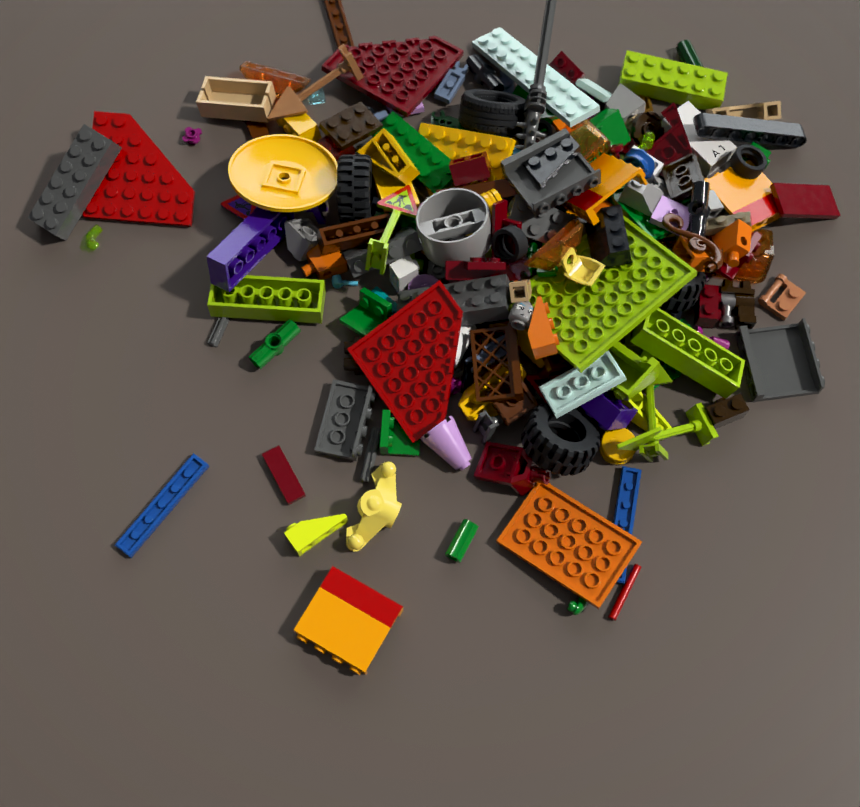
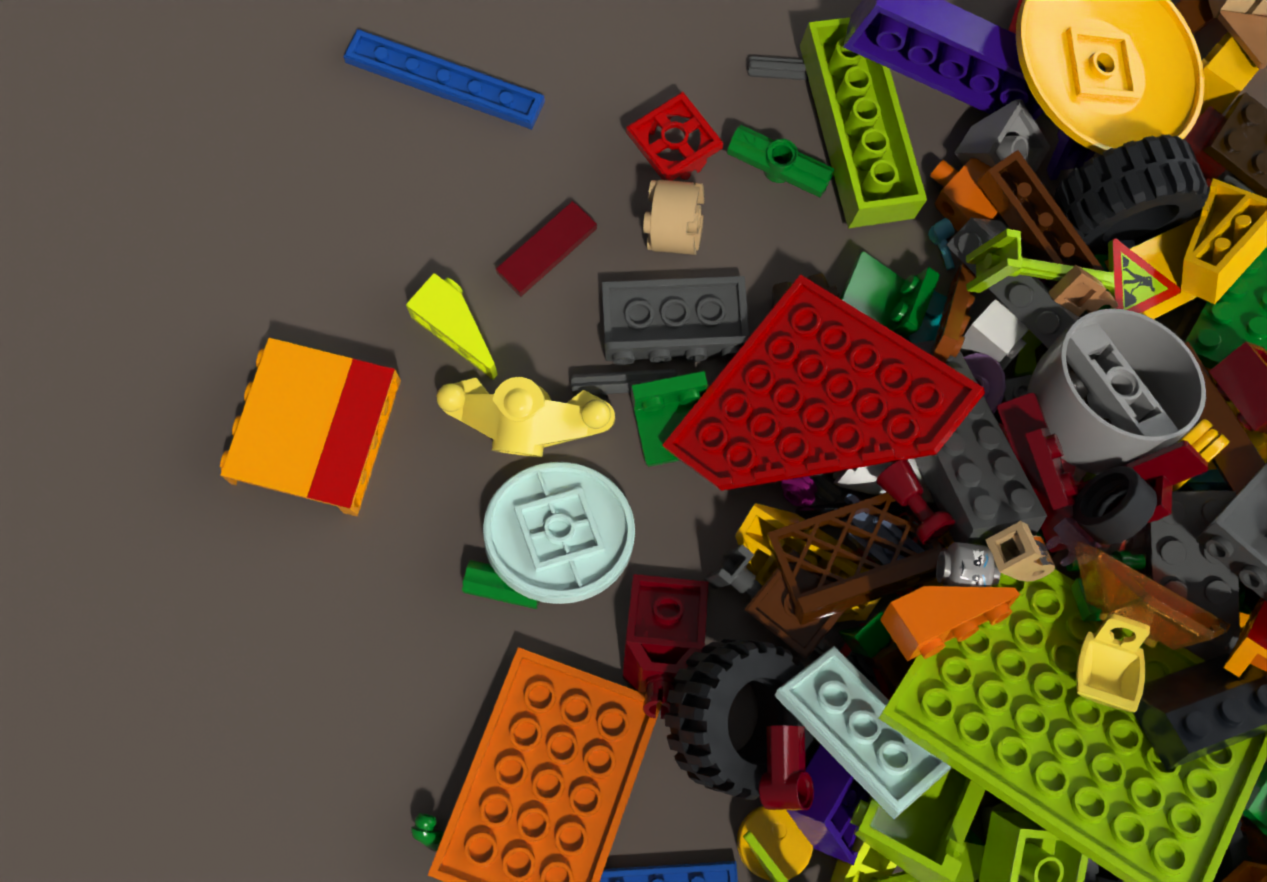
camera: 75 degrees right, 5 degrees up
(228, 382) = (661, 116): none -> red piece
(292, 402) = (675, 217): none -> tan brick
(388, 286) = (954, 316): none -> dark orange plate
(401, 225) = (1081, 292): none -> medium nougat plate
(442, 505) = (559, 532): none -> light aqua plate
(448, 444) = (679, 511): lavender cone -> none
(474, 331) = (904, 487): none -> dark red piece
(535, 373) = (867, 639): none -> green slope
(597, 424) = (786, 781): none -> dark red piece

